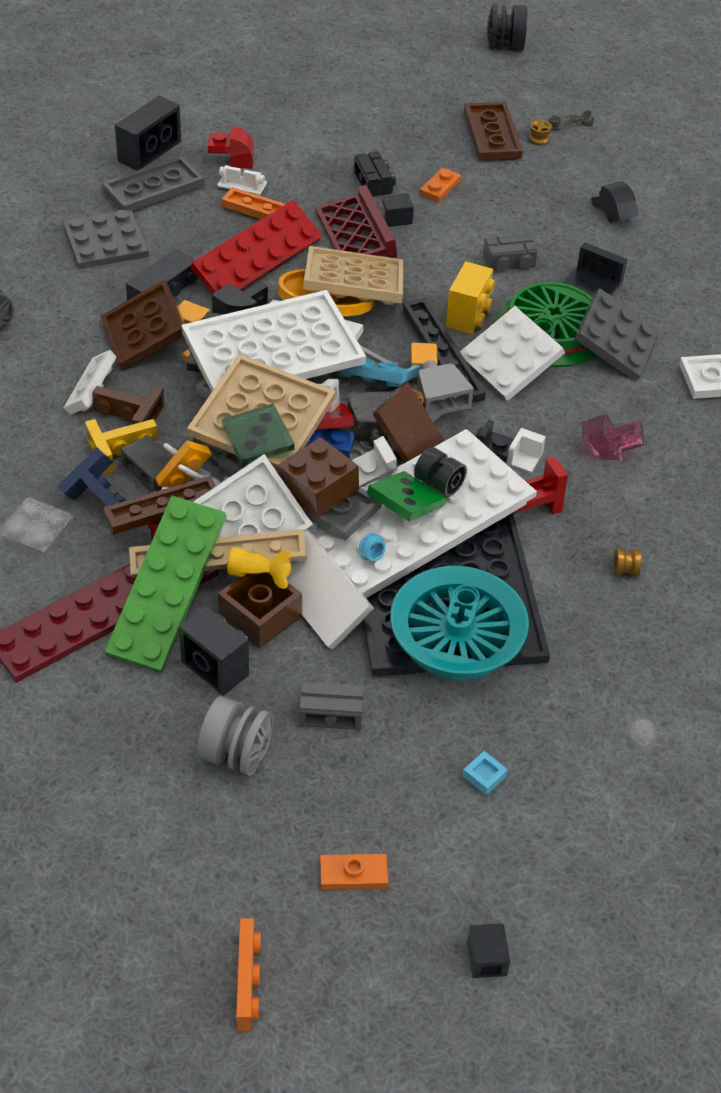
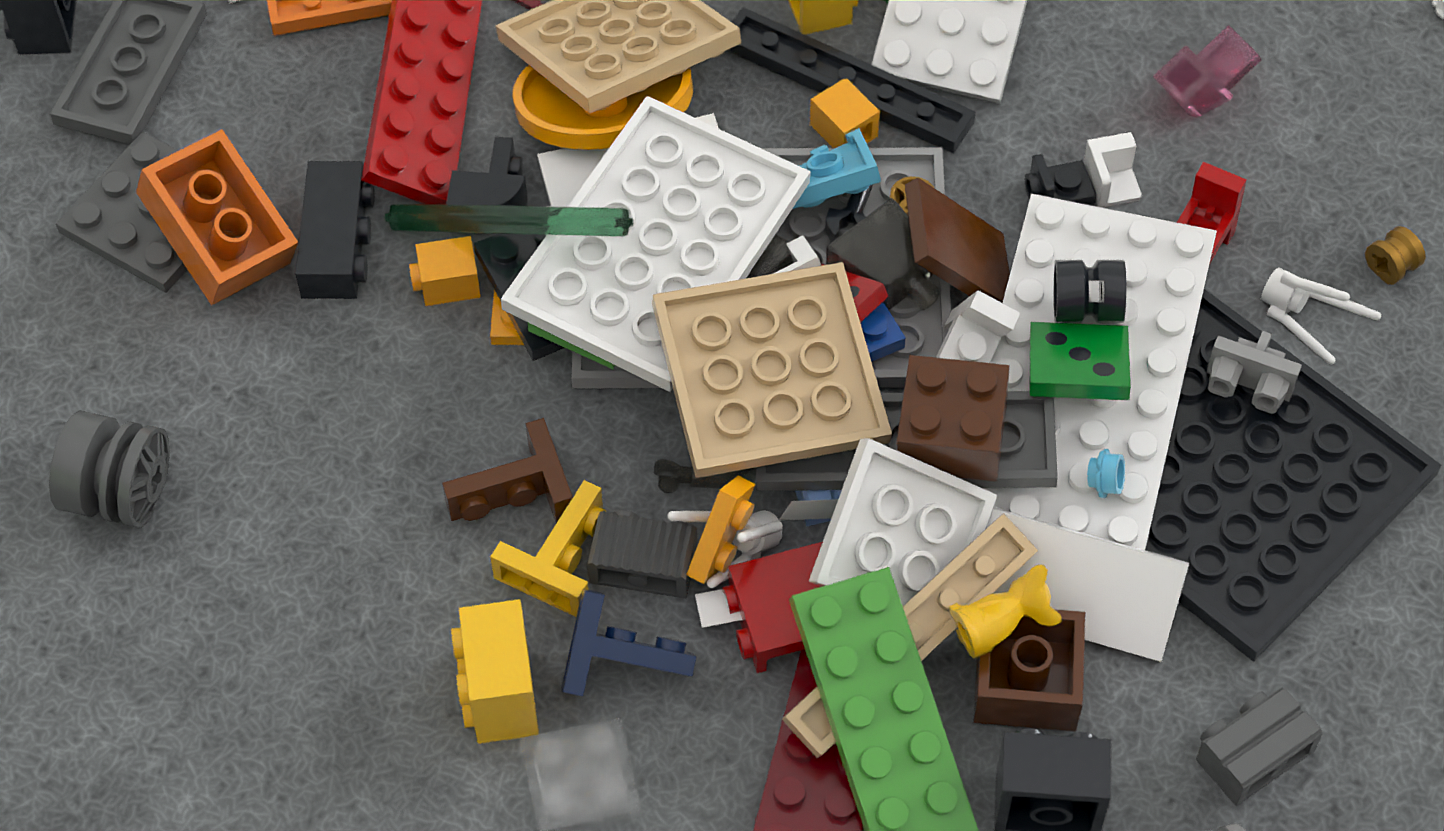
camera: 35 degrees left, 10 degrees up
(39, 461) = (494, 672): none -> yellow brick
(93, 376) = (409, 481): white plate -> none
(115, 244) = (216, 216): none -> orange brick
(143, 324) = (397, 327): reddish brown plate -> none
(151, 507) = (756, 616): reddish brown plate -> none
(221, 303) = (510, 219): none -> clear green axle
(257, 434) = (810, 409): clear green tile -> none
(443, 388) = (928, 144): light grey torso -> none
(461, 624) = (1312, 506): teal piece -> none
(497, 554) = (1253, 367): none -> light grey hips
(557, 547) = (1289, 292): none -> white plant

